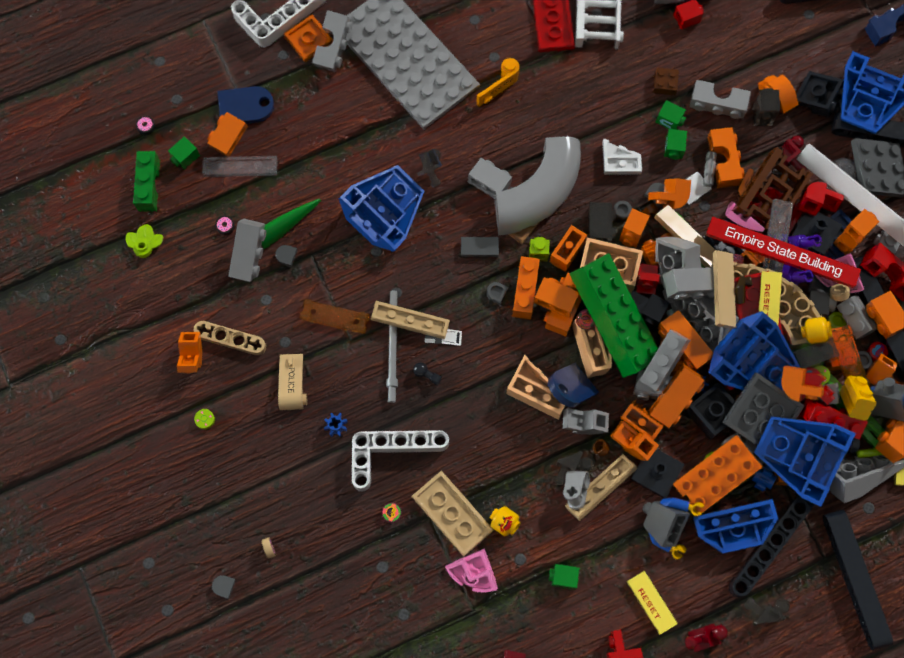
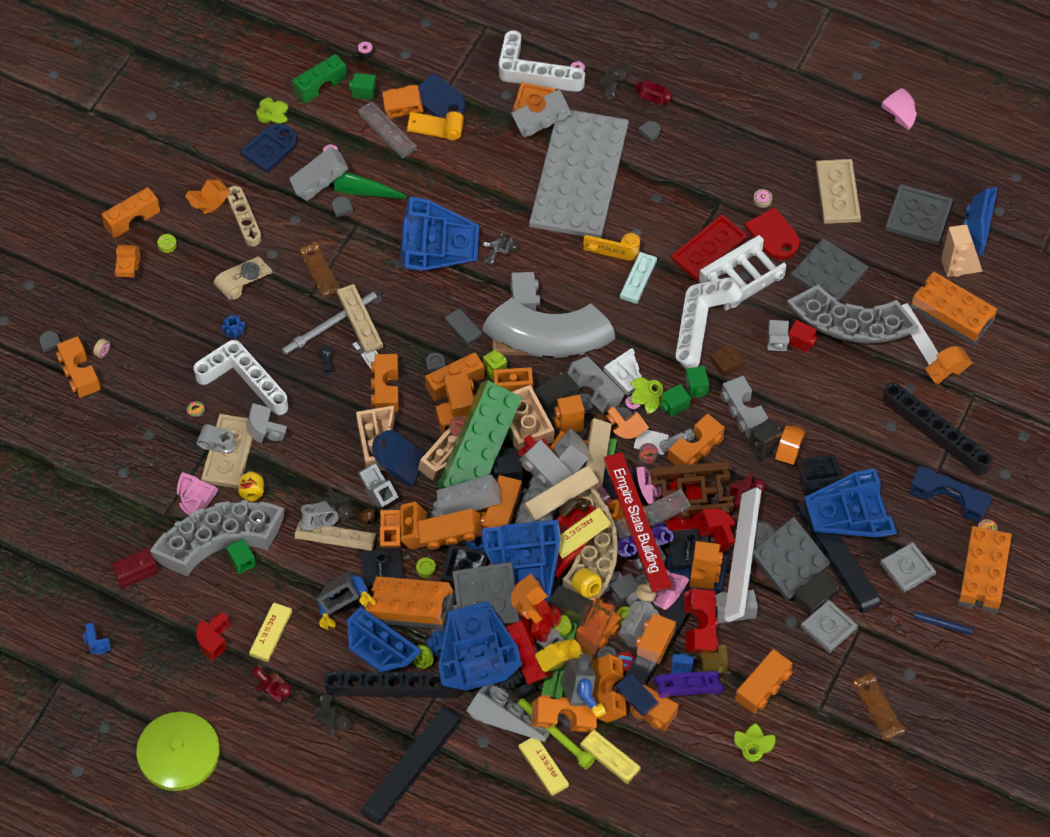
camera: 50 degrees right, 15 degrees down
(148, 438) = (117, 218): none -> orange arch
(178, 269) = (269, 147): none -> dark blue tile
(200, 466) = (127, 260): none -> orange brick
(277, 121) = (435, 126): none -> light orange door
(288, 587) = (82, 379): none -> orange arch
(293, 372) = (250, 270): none -> dark grey tile
(436, 520) = (216, 439): none -> light grey piece
(452, 473) = (260, 427): none -> light grey brick
(499, 355) = (385, 369): none -> orange arch
(524, 579) = (216, 529): none -> light grey brick
(539, 87) = (638, 278): none -> light aqua tile
(616, 72) = (695, 313): none -> white beam
(630, 186) = (588, 374): none -> light grey arch
(651, 175) = (632, 407): none -> tile
(654, 160) = (645, 395): none -> lime plate
(675, 29) = (778, 335): none -> light grey brick
(681, 437) = (425, 567): none -> lime tile
(704, 197) = (648, 453): none -> tile
(764, 495) = (425, 658): none -> lime plate

